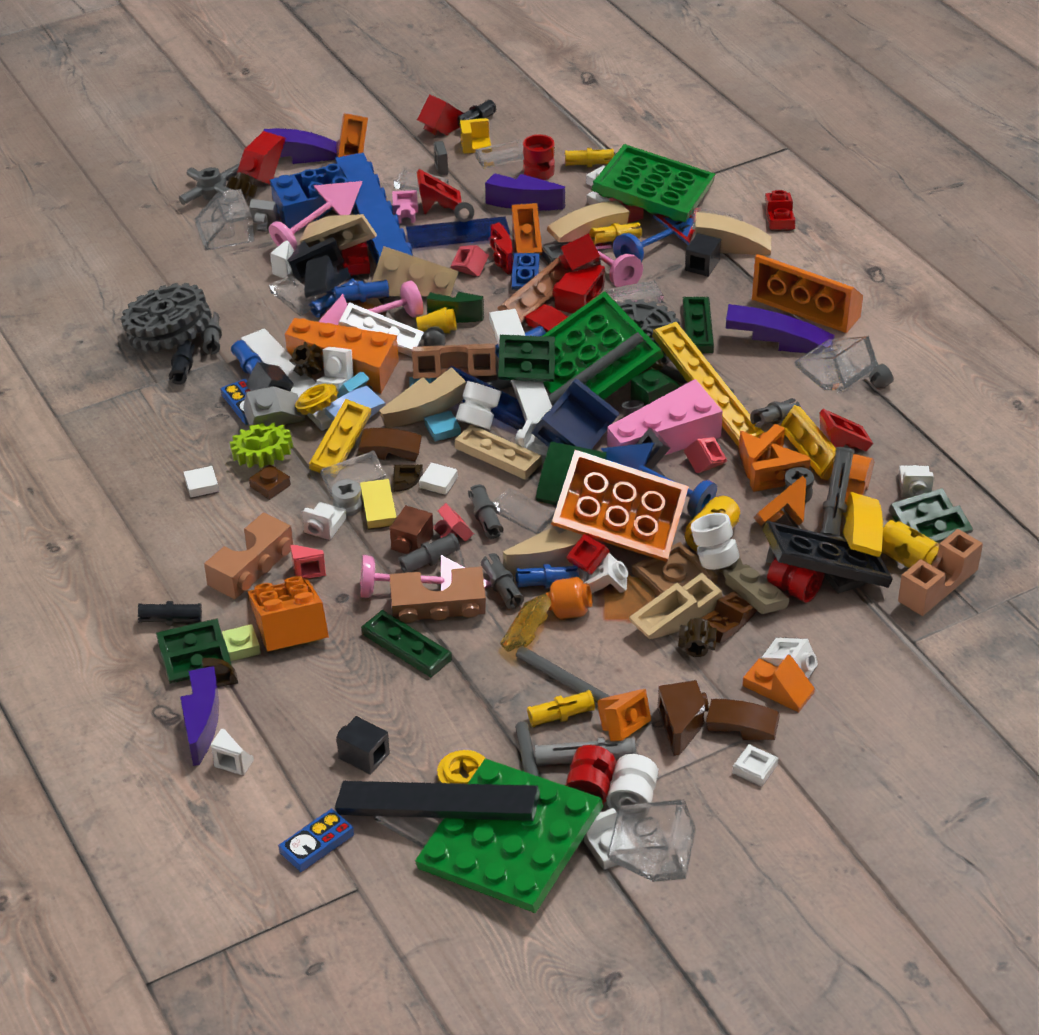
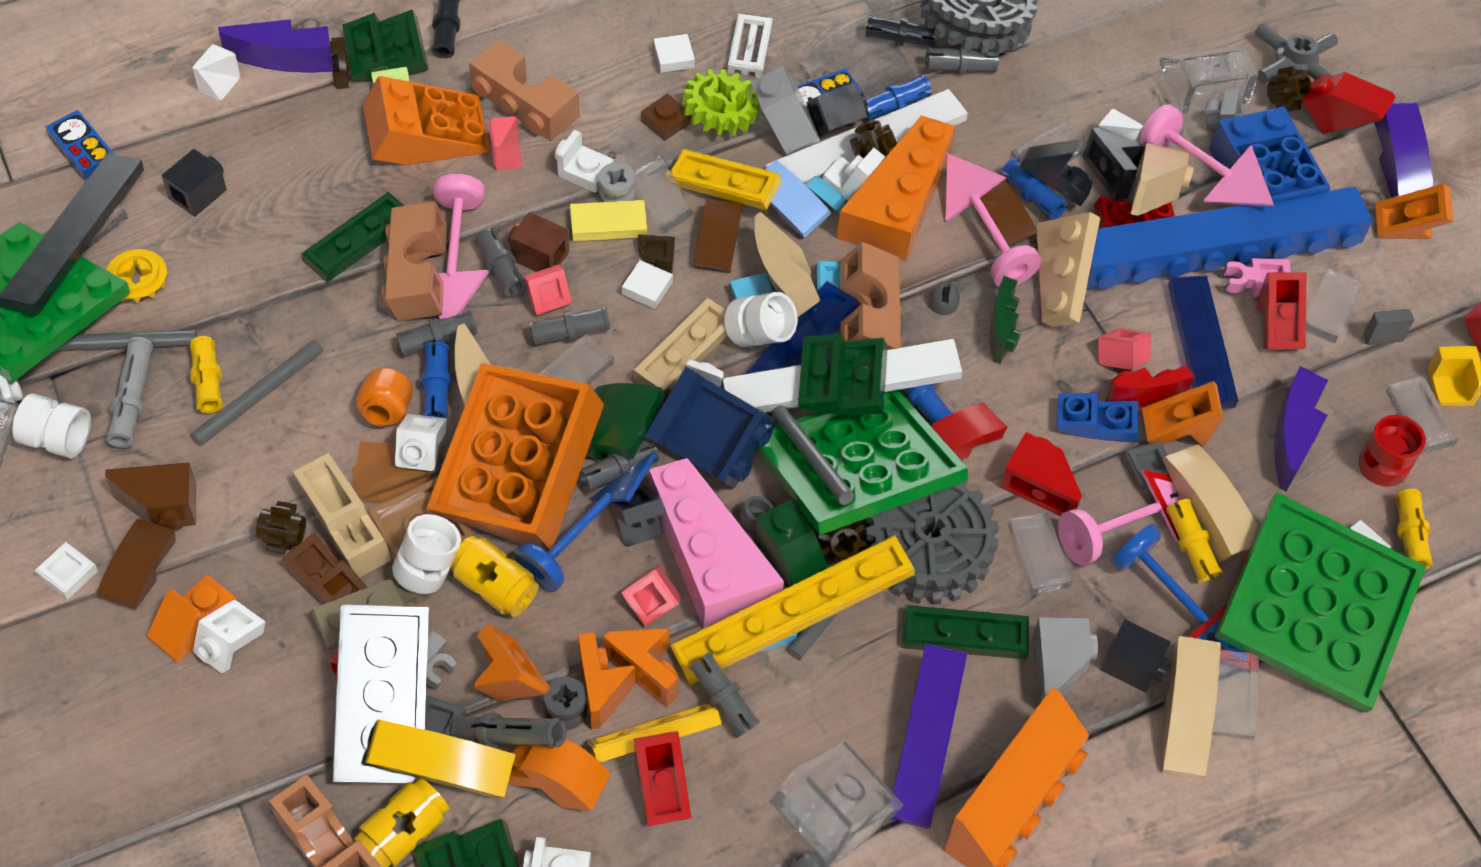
camera: 90 degrees right, 15 degrees up
(191, 442) = (747, 66): none -> white tile
(316, 398) = (792, 149): yellow gear -> none
(362, 291) = (1024, 205): blue pin -> none
(364, 319) = (948, 229): white tile -> none
(442, 318) = (974, 302): yellow cone -> none
(469, 207) = (1229, 339): dark grey pin -> none
(526, 622) = (345, 346): clear yellow plate -> none
(535, 291) = (1032, 414): nougat tile -> none
(579, 254) = (1106, 474): red slope -> none
(587, 554) = (438, 412): red tile -> none
(592, 771) = (79, 384): red wheel -> none
(624, 713) = (164, 434): orange slope -> none
(715, 281) = (1062, 653): none -> light grey slope
(779, 210) = (1279, 802): red slope -> none

